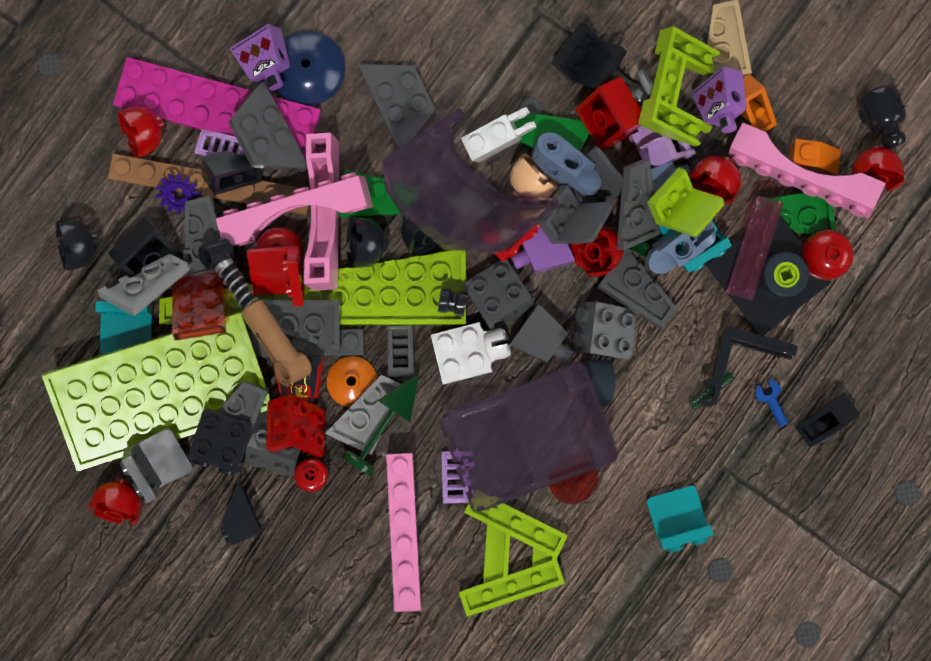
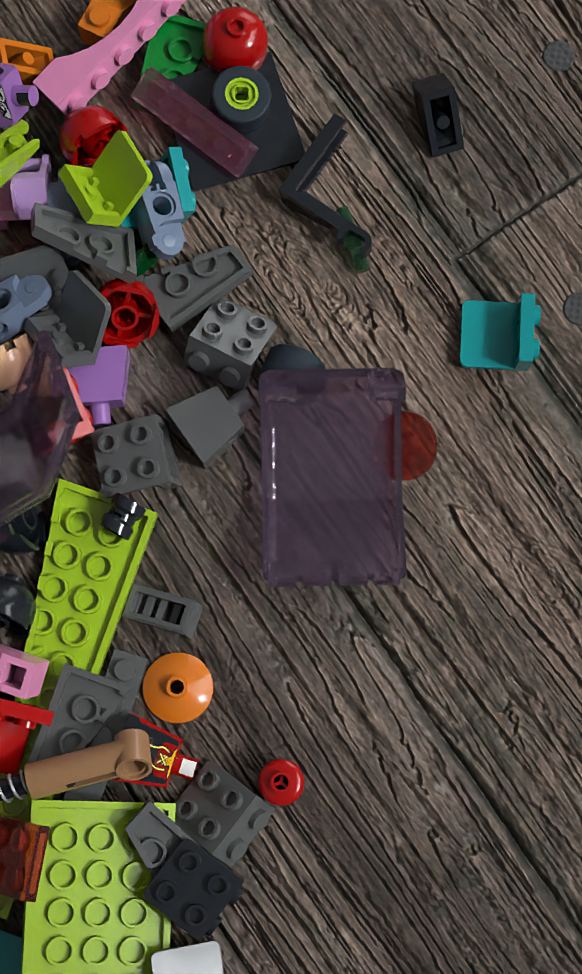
camera: 70 degrees left, 5 degrees down
(240, 518) = (306, 899): black slope -> none
(295, 424) = (206, 779): red bracket -> none
(364, 416) = (230, 679): light grey wing -> none
(398, 401) = (227, 632): dark green piece -> none
(403, 532) = (398, 685): bright pink arch -> none
(445, 477) = (358, 612): lavender slope -> none
(468, 351) = (193, 522): white plate -> none
(497, 584) = (509, 587): lime plate -> none
(772, 402) = (390, 172): blue bar -> none

